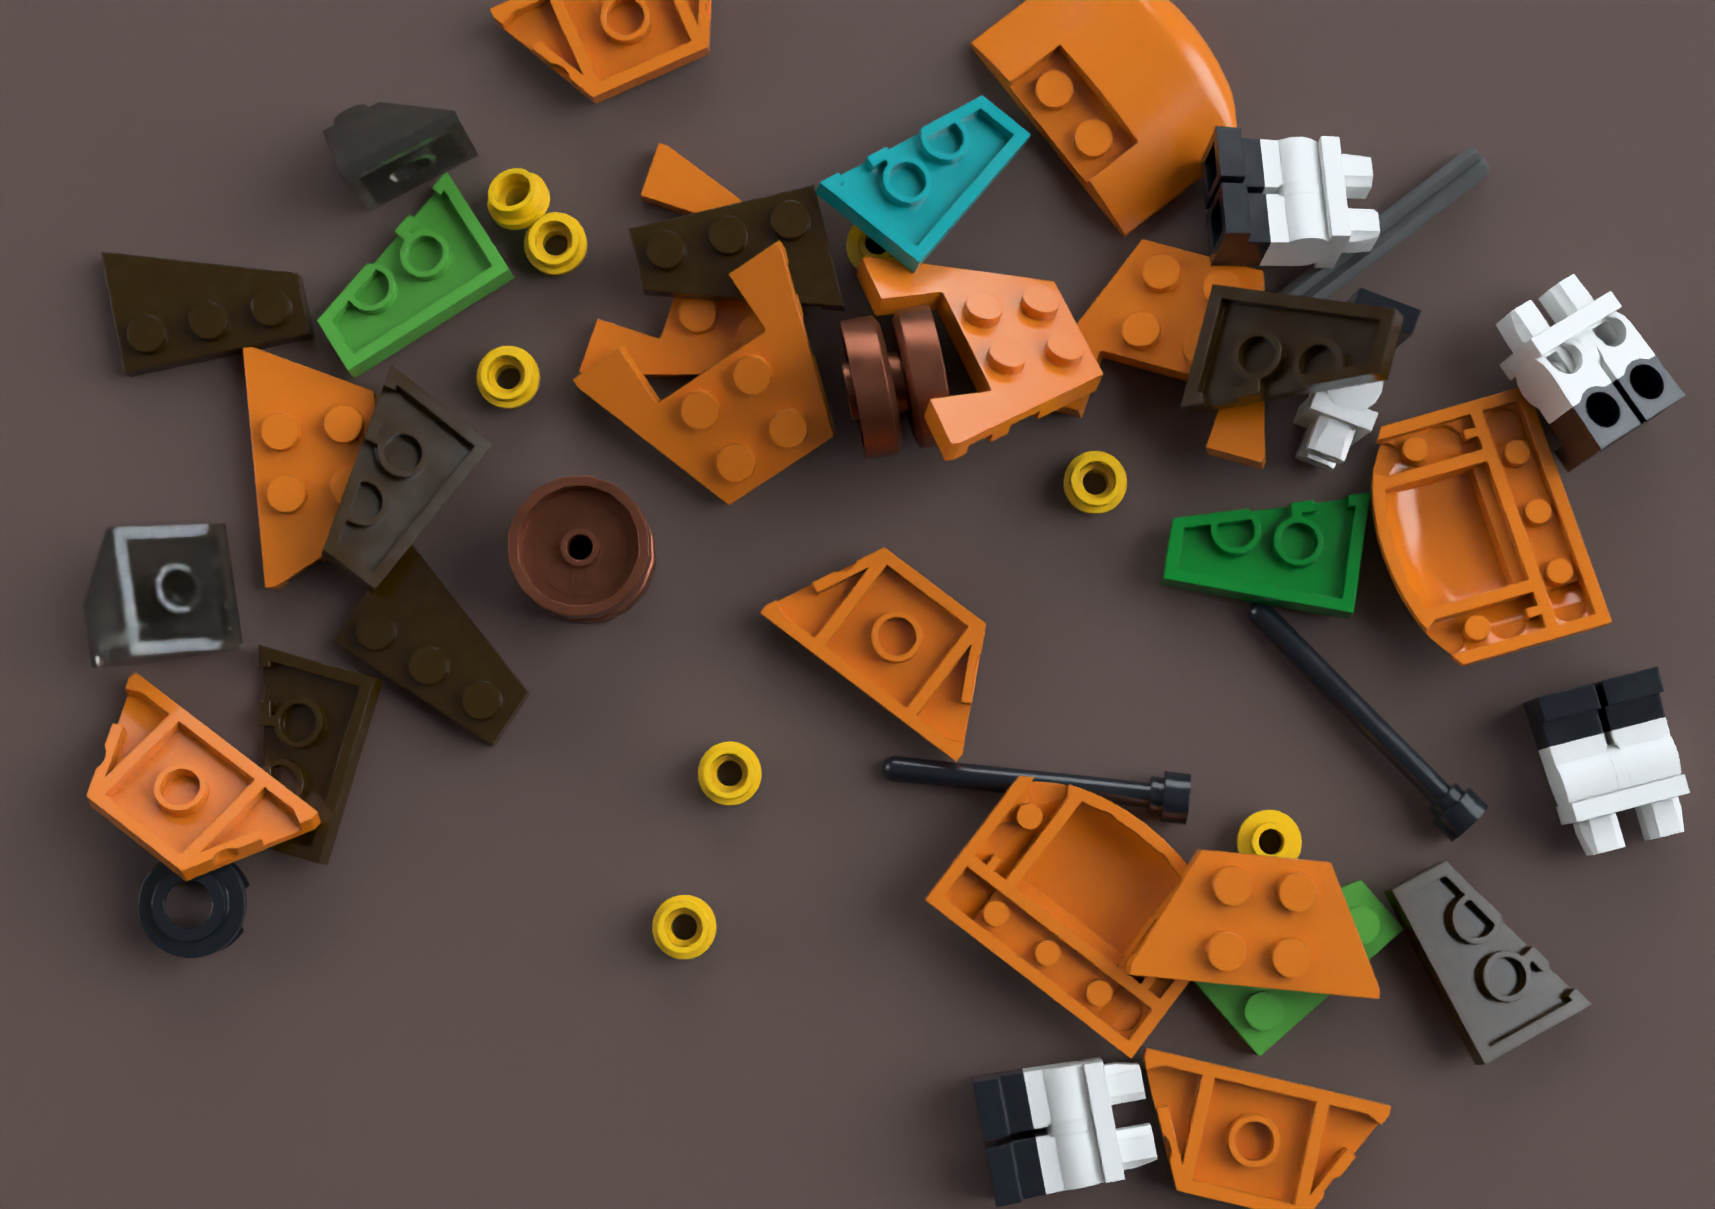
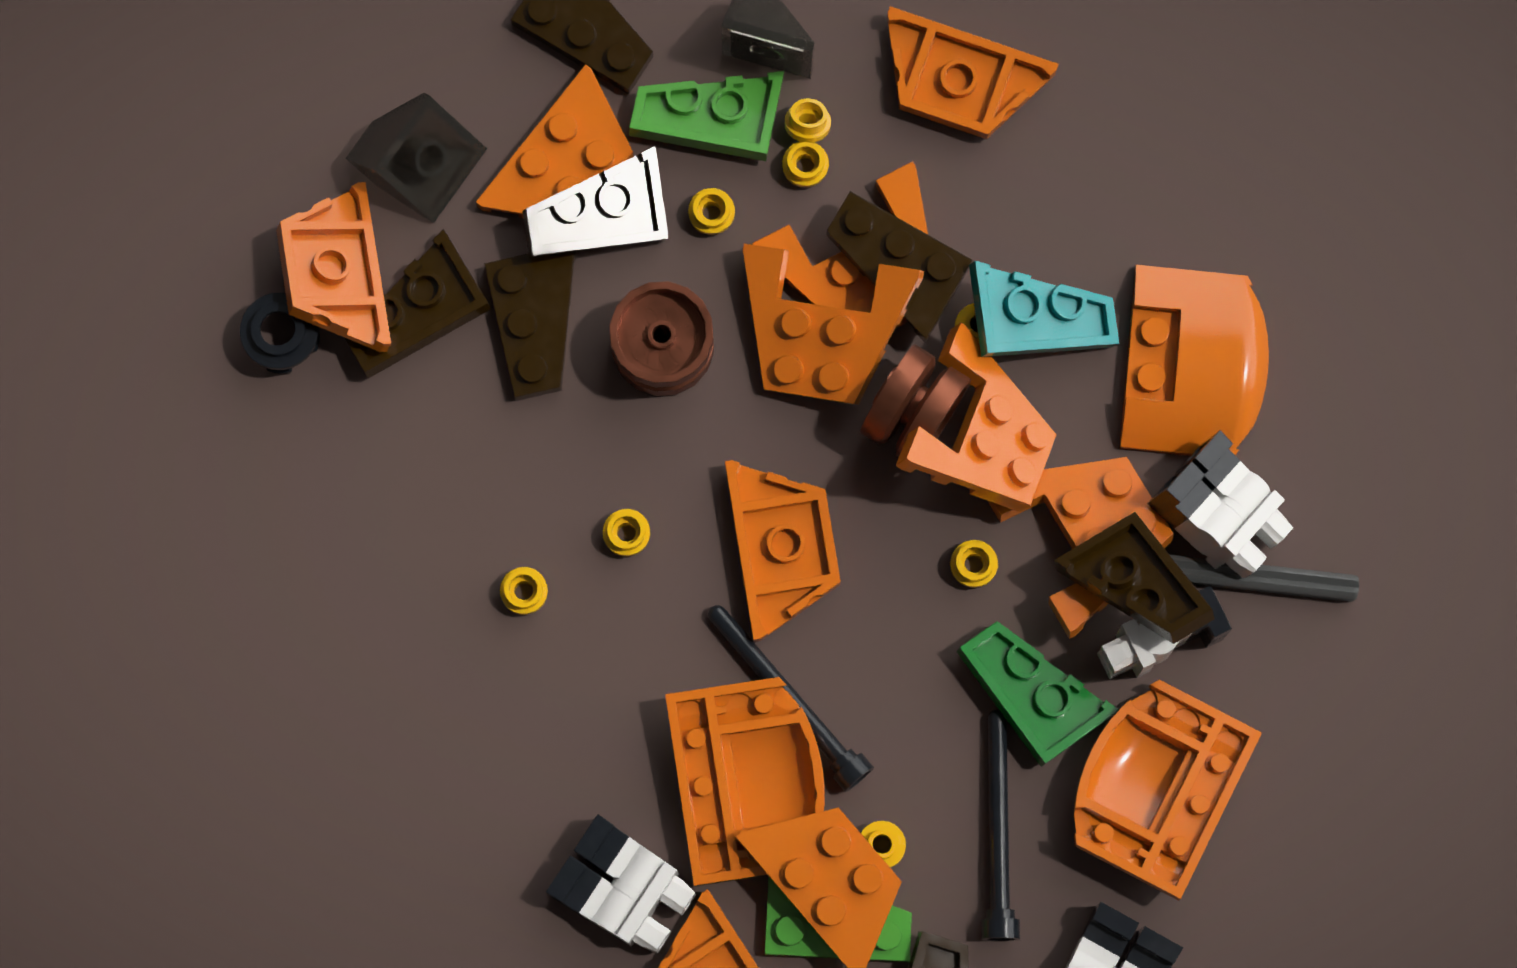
camera: 40 degrees right, 5 degrees down
(1586, 371) = (1299, 753): white hips -> none

